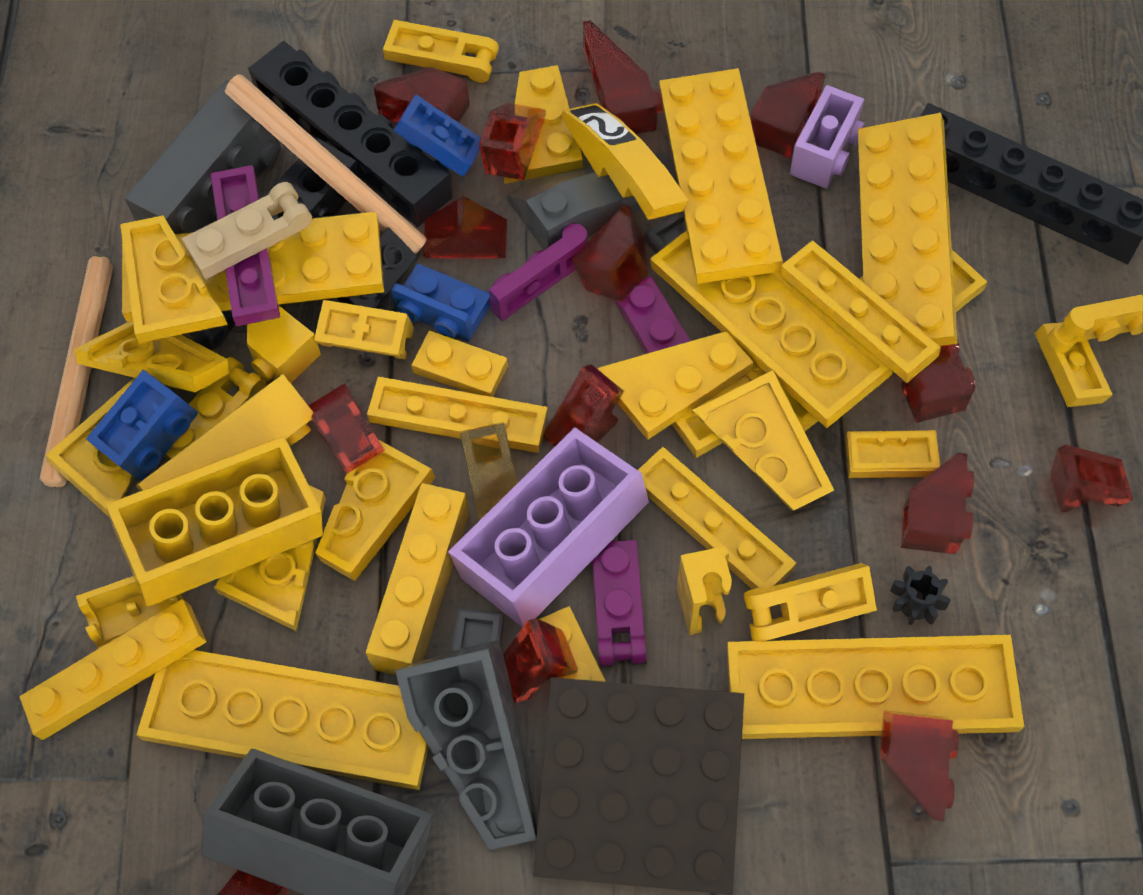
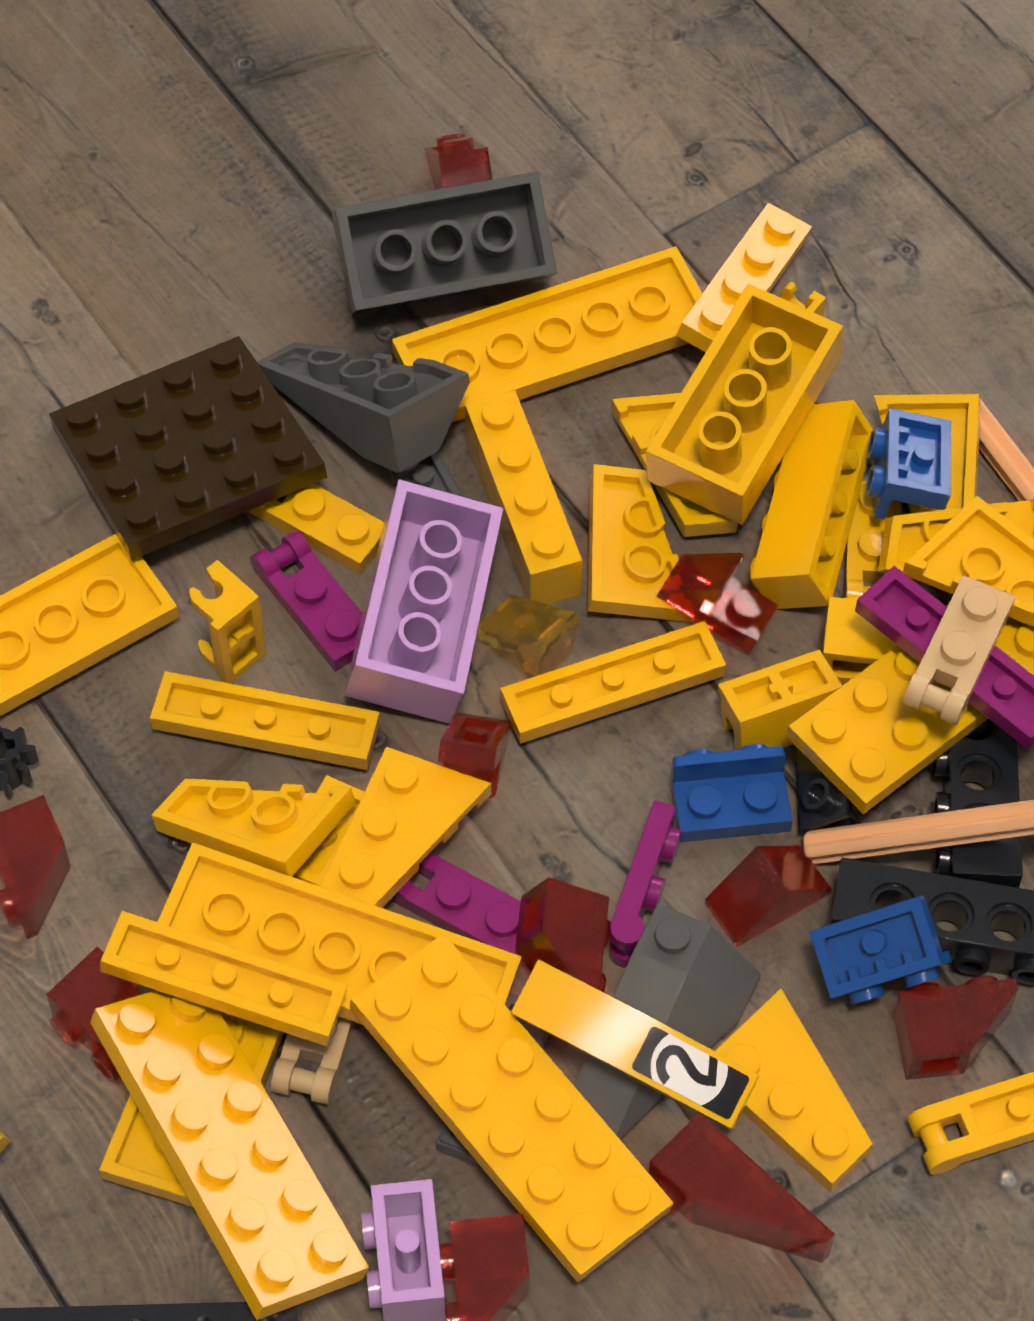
camera: 145 degrees right, 5 degrees down
(459, 365) = (651, 741): yellow plate -> none
(510, 139) = (795, 1007): clear red slope -> none
(536, 656) = (346, 483): clear red slope -> none
(811, 602) = (113, 686): yellow plate -> none
(891, 453) = (94, 905): yellow plate -> none

